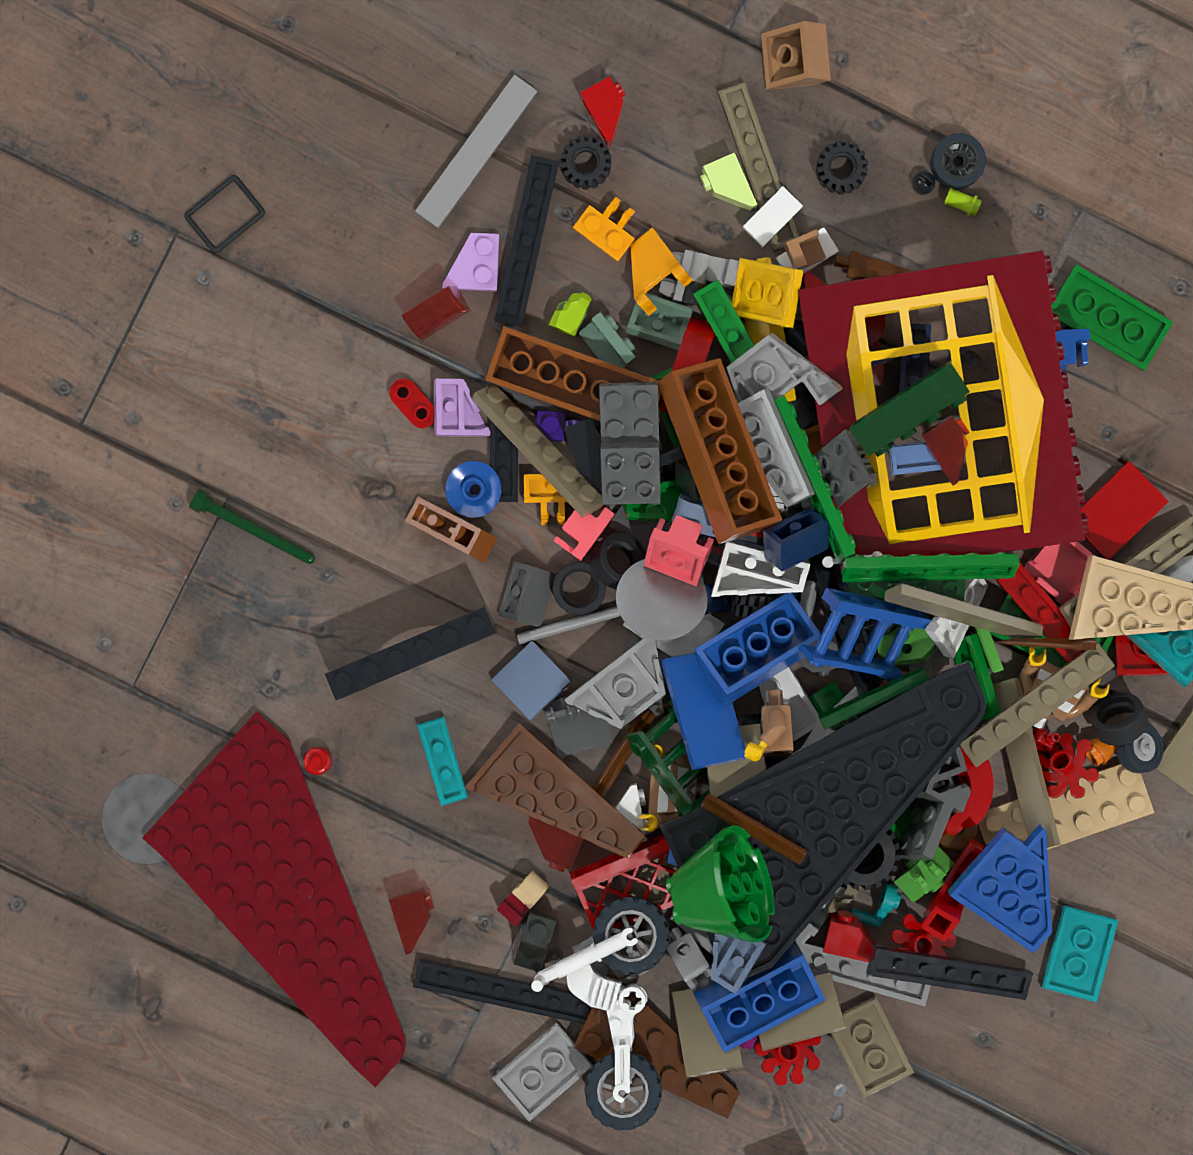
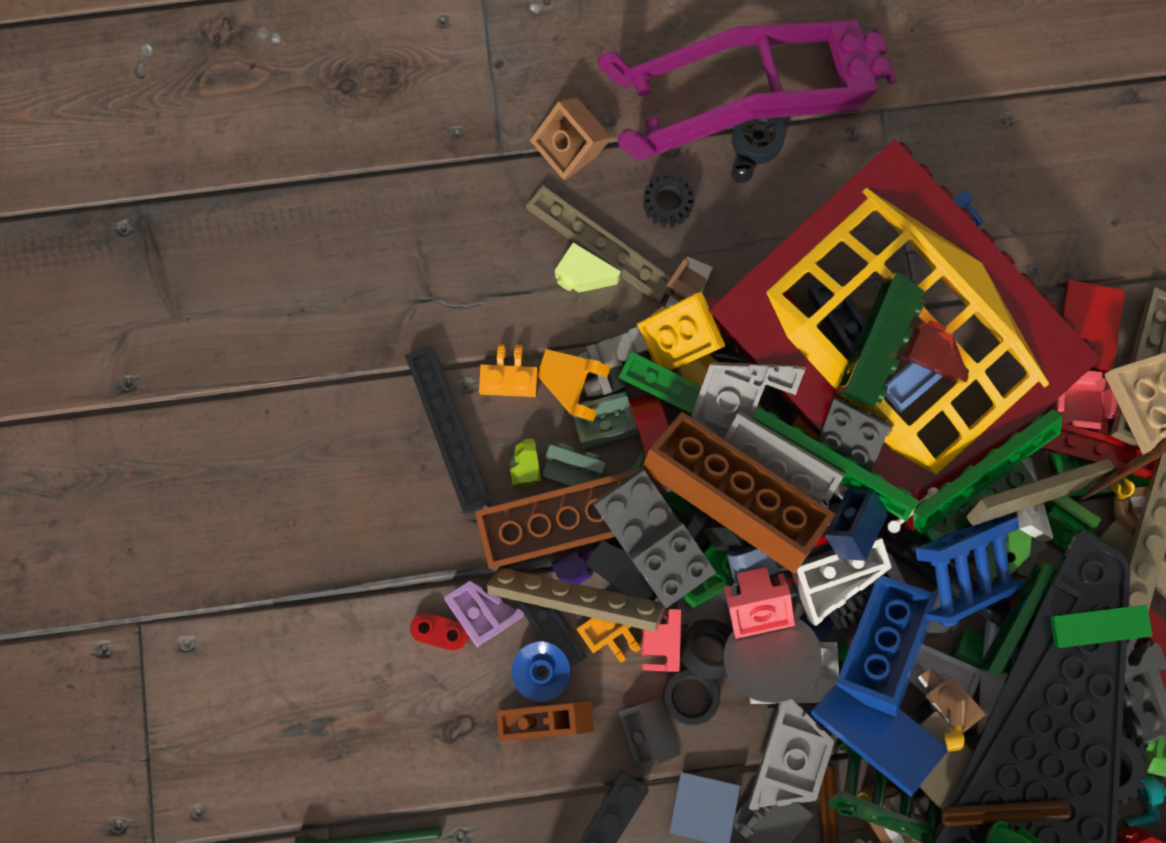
camera: 30 degrees left, 10 degrees down
(218, 189) = (139, 600): black piece -> none
(436, 312) = (408, 539): clear red brick -> none
(476, 151) = (356, 384): light grey tile -> none
(476, 264) = (417, 477): lavender wing -> none
(567, 625) = (703, 735): light grey bar -> none
(590, 145) = (449, 316): black tyre -> none
(604, 106) = (438, 276): red slope -> none
(772, 217) = (639, 274): white tile -> none
(865, 267) = (739, 267): reddish brown bar -> none
(927, 742) = (1101, 626): none -> green tile
(963, 202) = (785, 164): lime pin -> none
(1086, 149) = (854, 54): none -> magenta piece
(1112, 317) = (989, 175): green plate -> none

